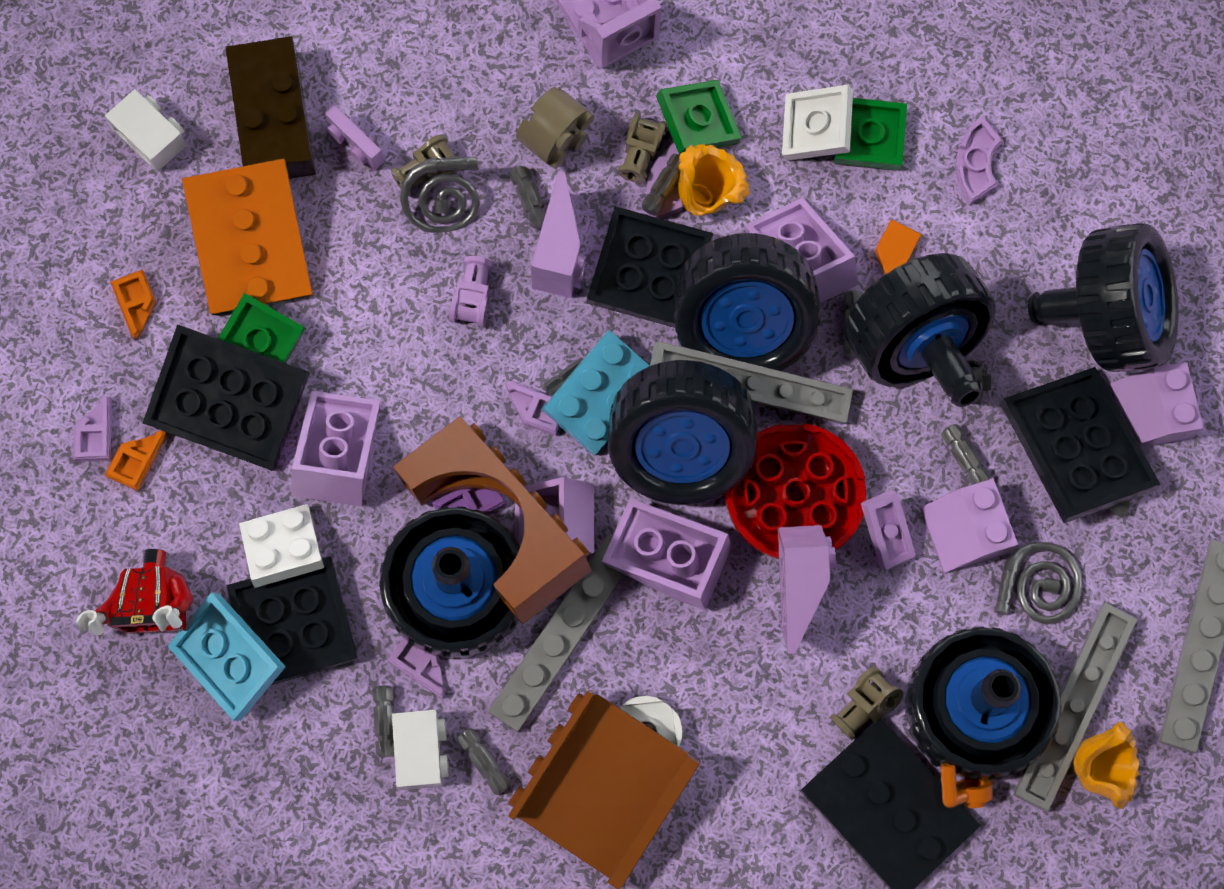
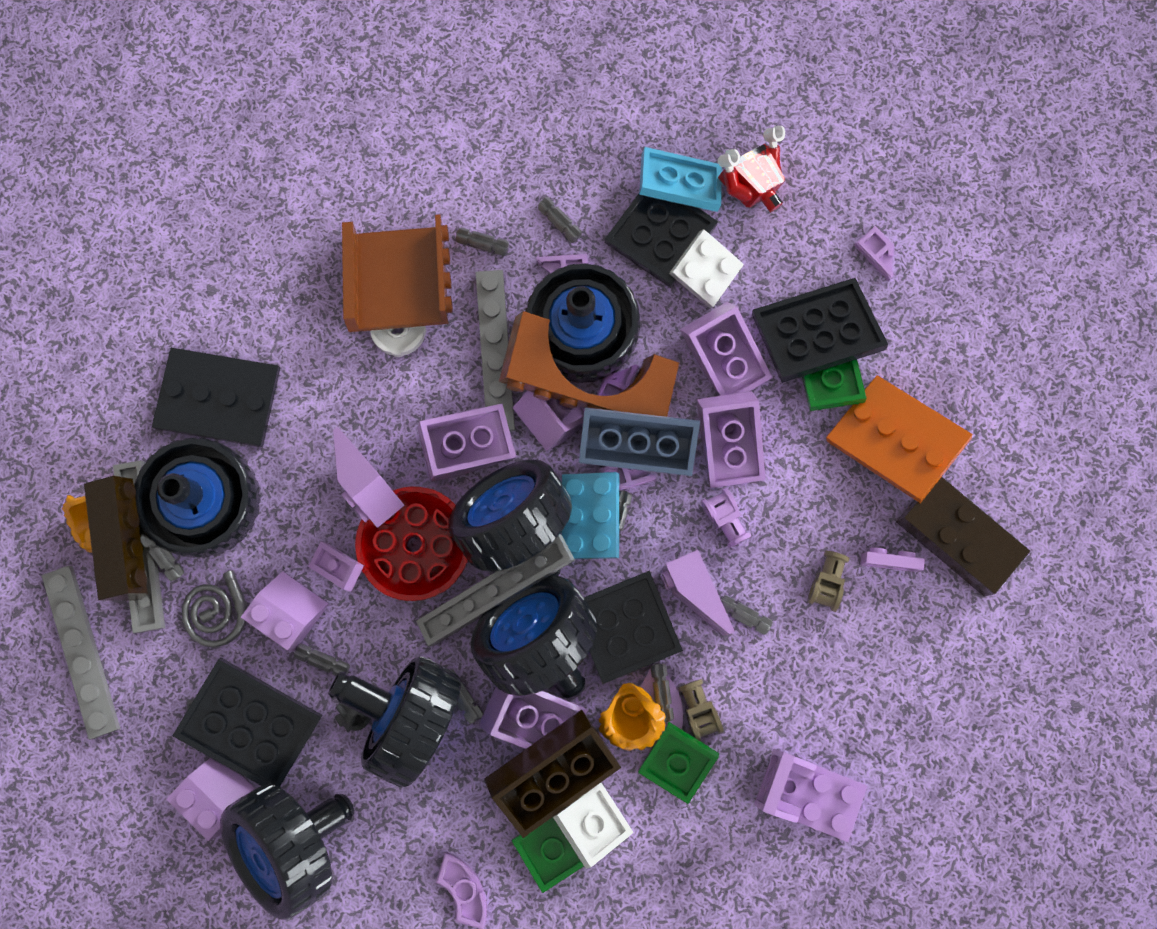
camera: 145 degrees right, 5 degrees up
(134, 300) = (930, 349): orange tile -> none
(135, 460) = (839, 254): orange tile -> none
(146, 130) = (1027, 459): white brick -> none
(402, 362) = (732, 439): none -> lavender slope
(418, 750) = (525, 216): white brick -> none
(441, 203) = (792, 557): flat silver piece -> none
(502, 415) = (639, 441): none -> sand blue slope
(555, 126) = (768, 673): dark tan brick -> none
(822, 187) = (551, 774): none -> dark brown brick
(867, 702) = (272, 447): dark tan connector -> none
(896, 246) = (470, 773): orange tile -> none
(971, 793) = (176, 431): orange plate -> none
(1057, 655) = (163, 559): none -> flat silver axle
(1092, 703) = (115, 539): none -> dark brown slope

